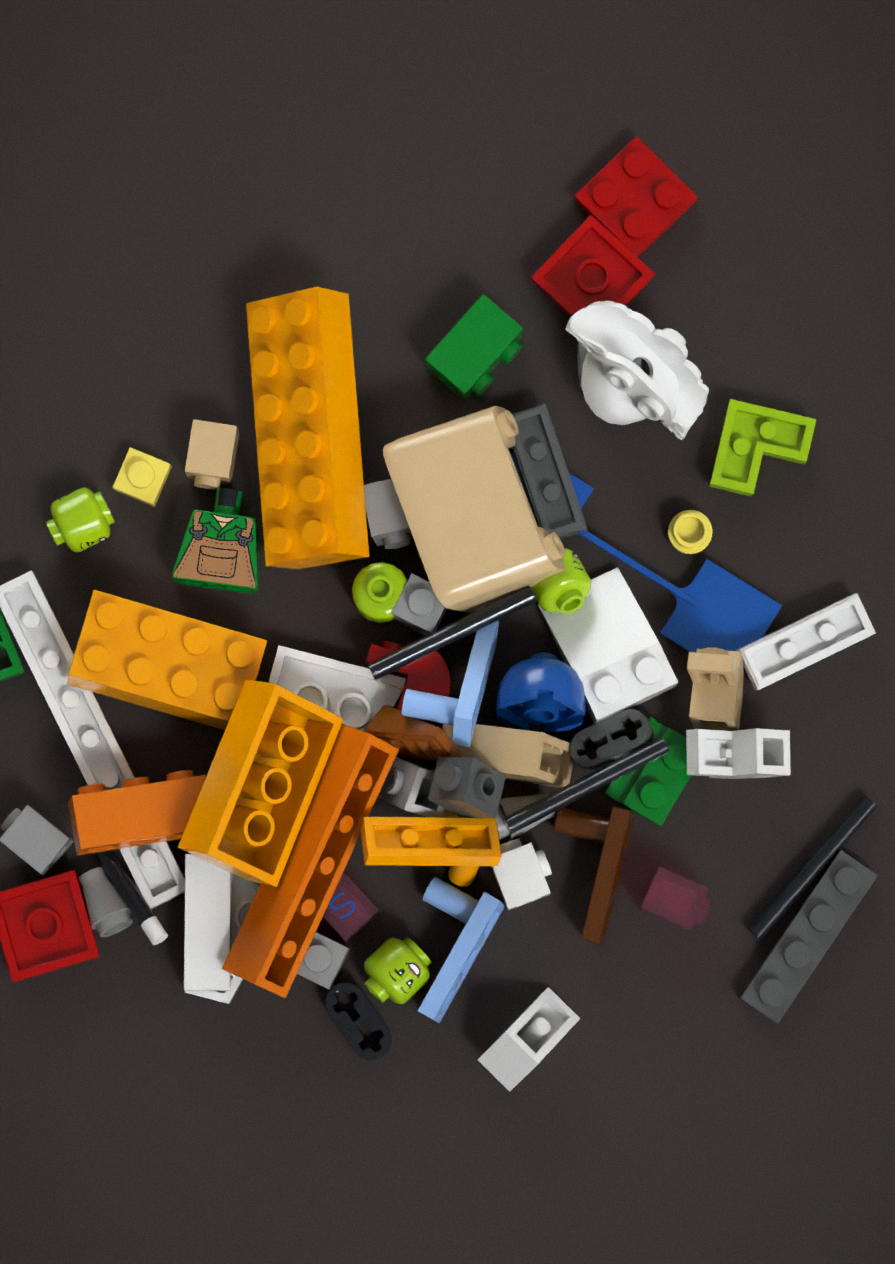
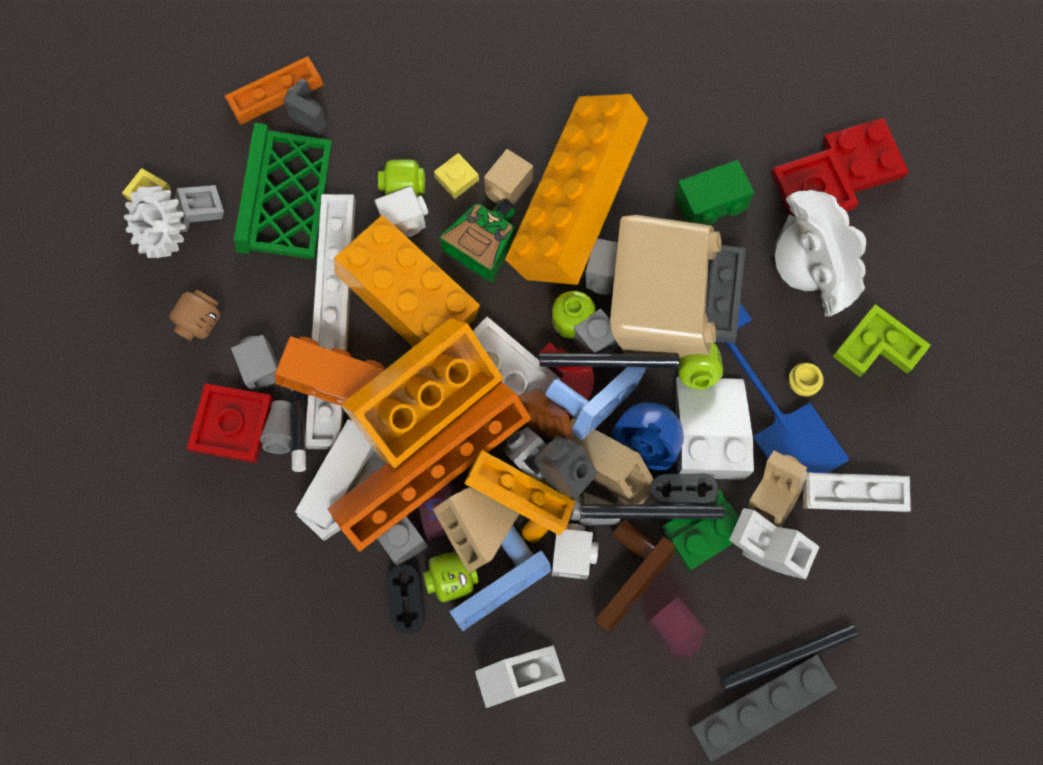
camera: 30 degrees right, 10 degrees down
(105, 563) = (403, 211): none -> white brick
(398, 904) = (475, 525): none -> tan slope

